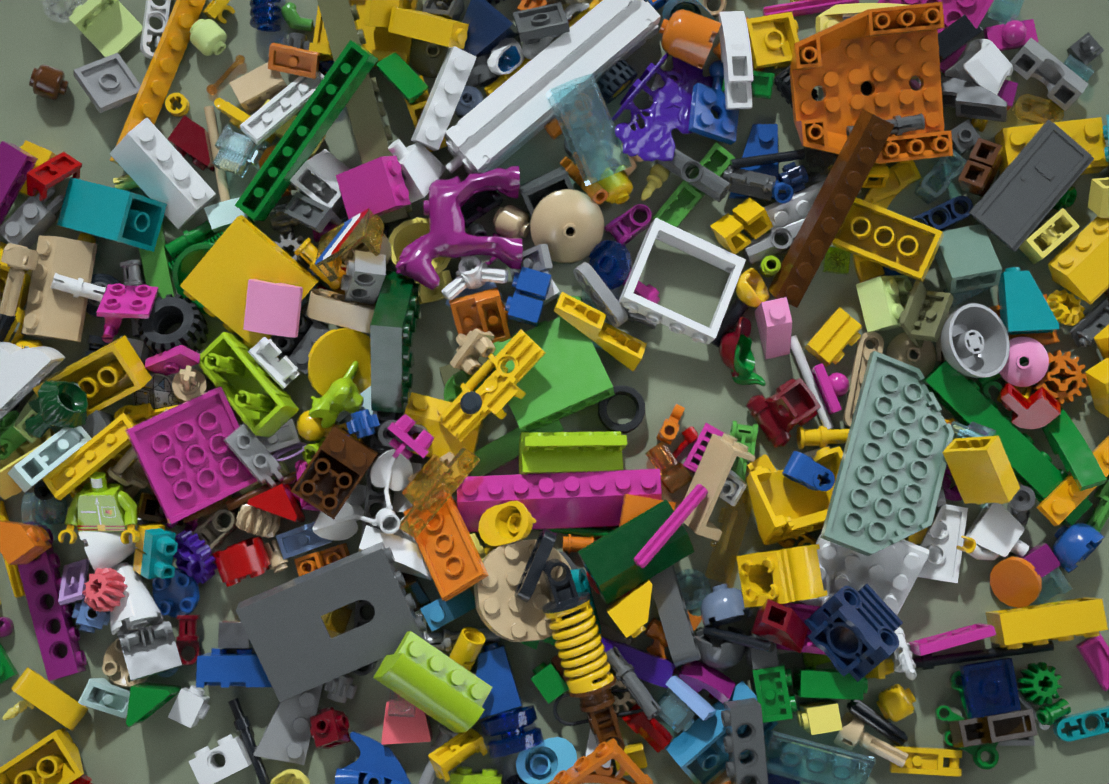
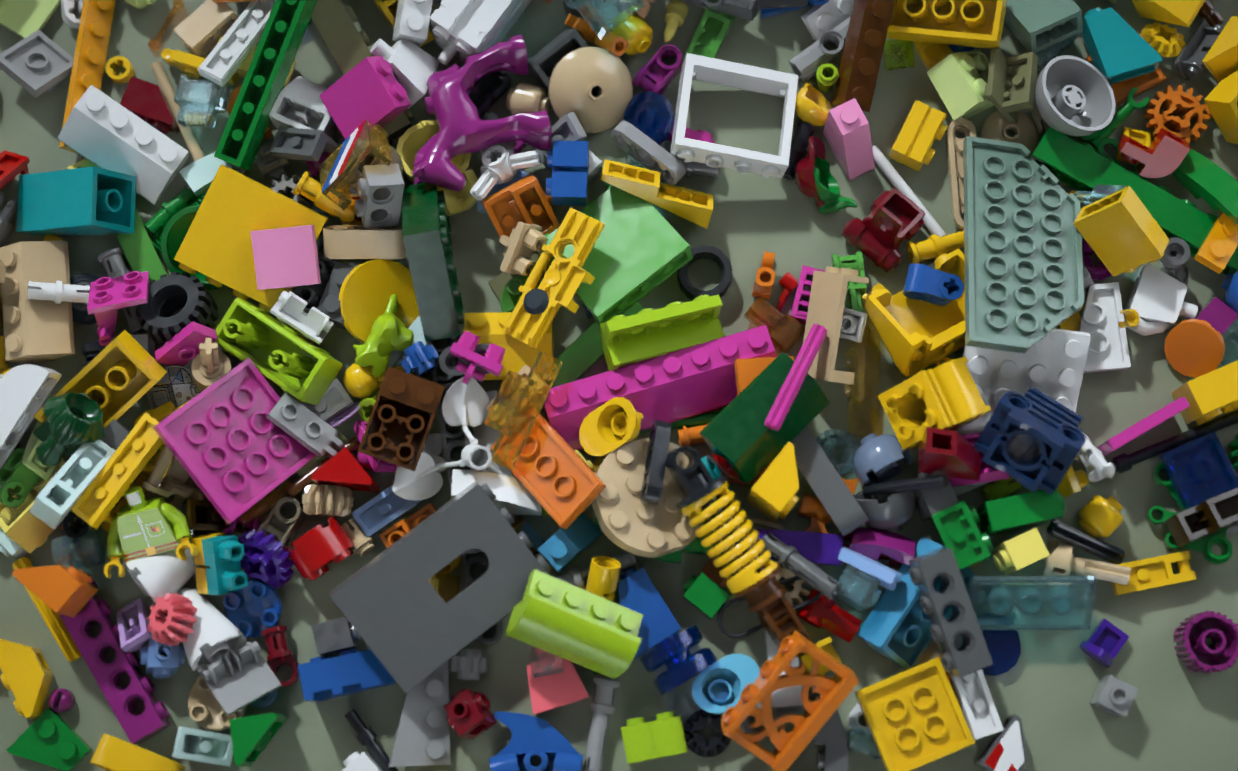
camera: 15 degrees left, 5 degrees down
(190, 706) = (302, 731): white brick -> none
(455, 752) = (621, 700): yellow hinge -> none
(747, 217) = (787, 30): yellow piece -> none
(830, 387) = (929, 190): dark pink tile -> none
(1037, 362) = (1140, 121): bright pink dish -> none

